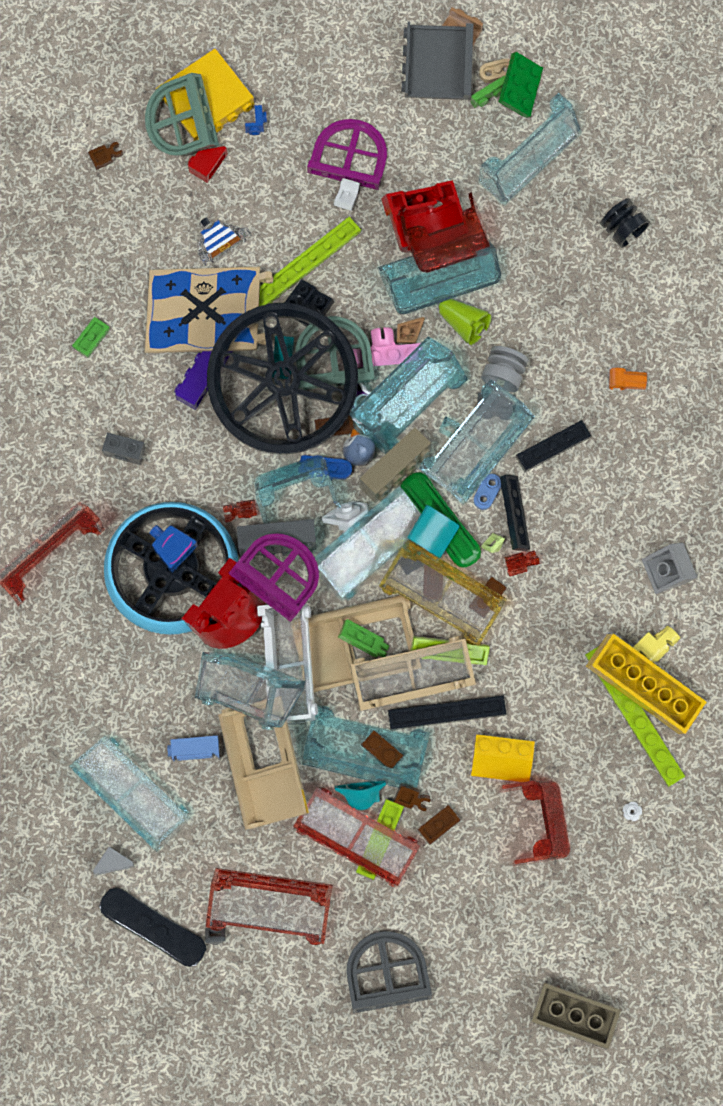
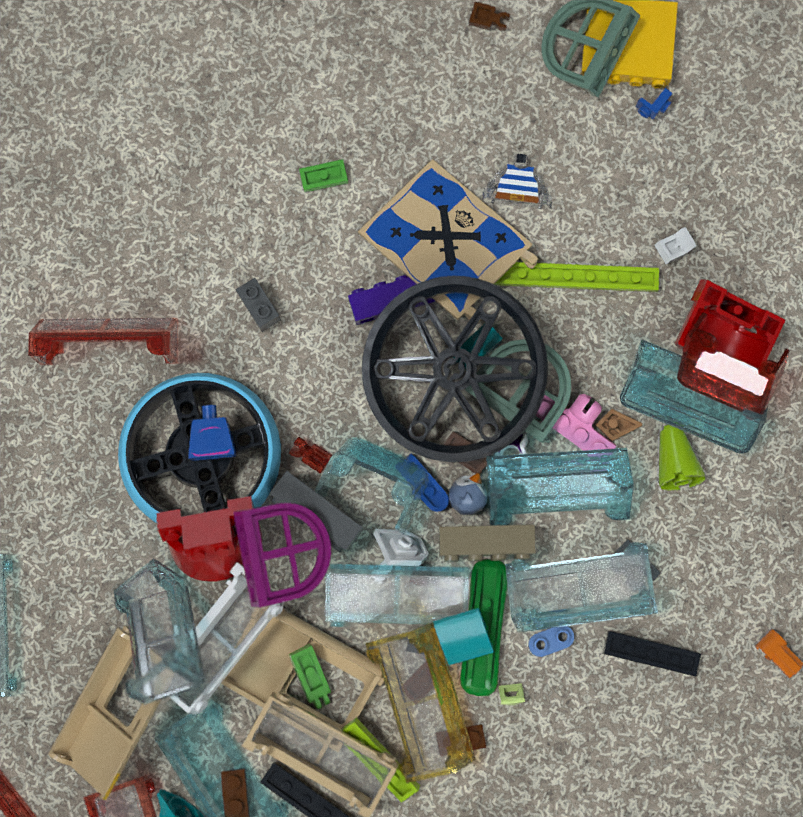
camera: 45 degrees right, 5 degrees up
(194, 748) = (71, 637): medium blue window -> none
(206, 162) = (573, 104): red slope -> none
(309, 296) = (549, 313): black slope -> none
(369, 181) = (670, 195): magenta window -> none
(449, 422) = (577, 548): clear light blue slope -> none
(505, 365) = (674, 540): light grey wheel -> none
(515, 513) = (557, 684): black plate -> none
(518, 562) = (518, 735): clear red plate -> none

